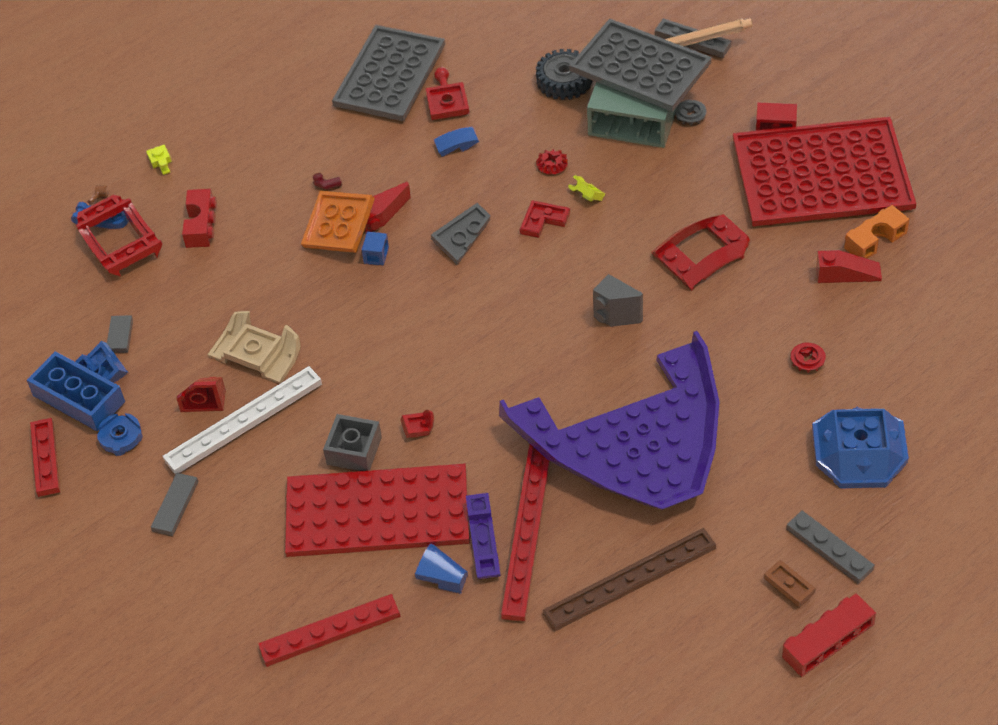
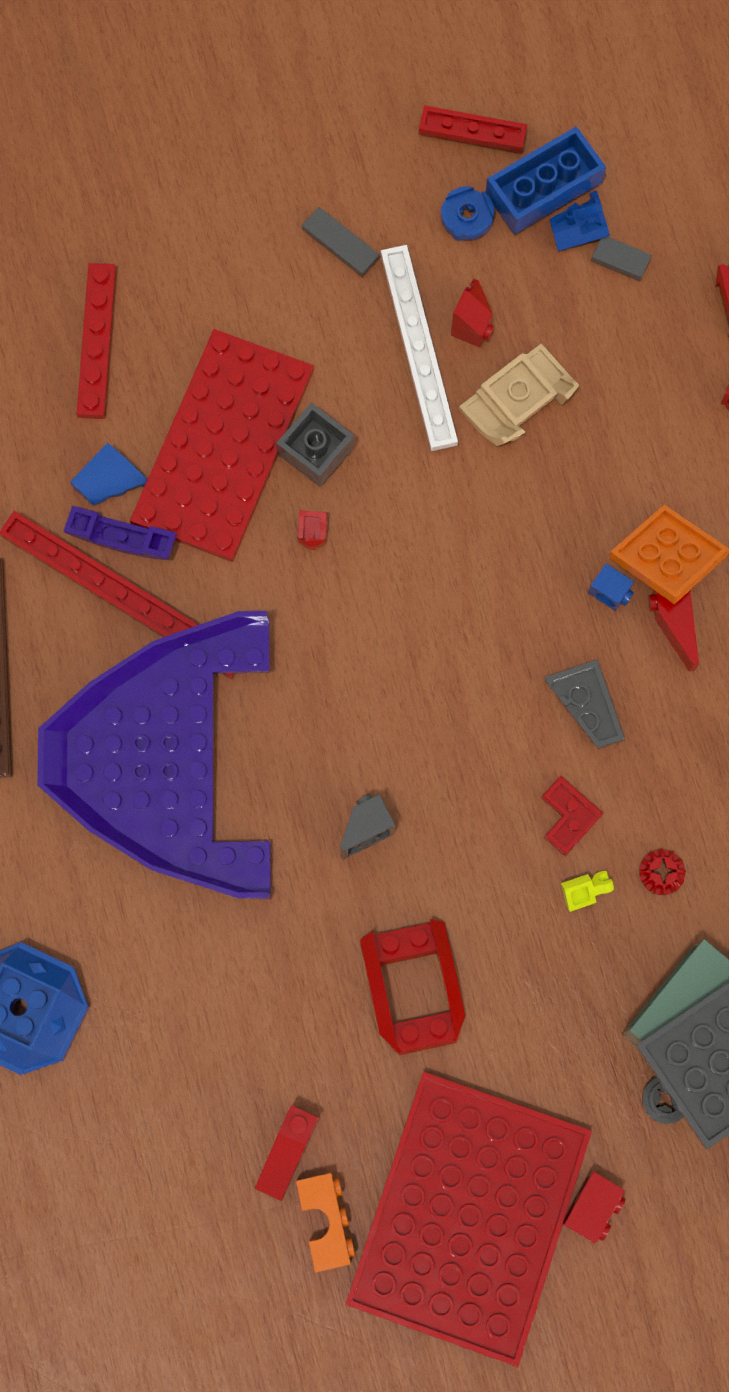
camera: 110 degrees right, 25 degrees up
(804, 350) = (166, 1019): red gear -> none

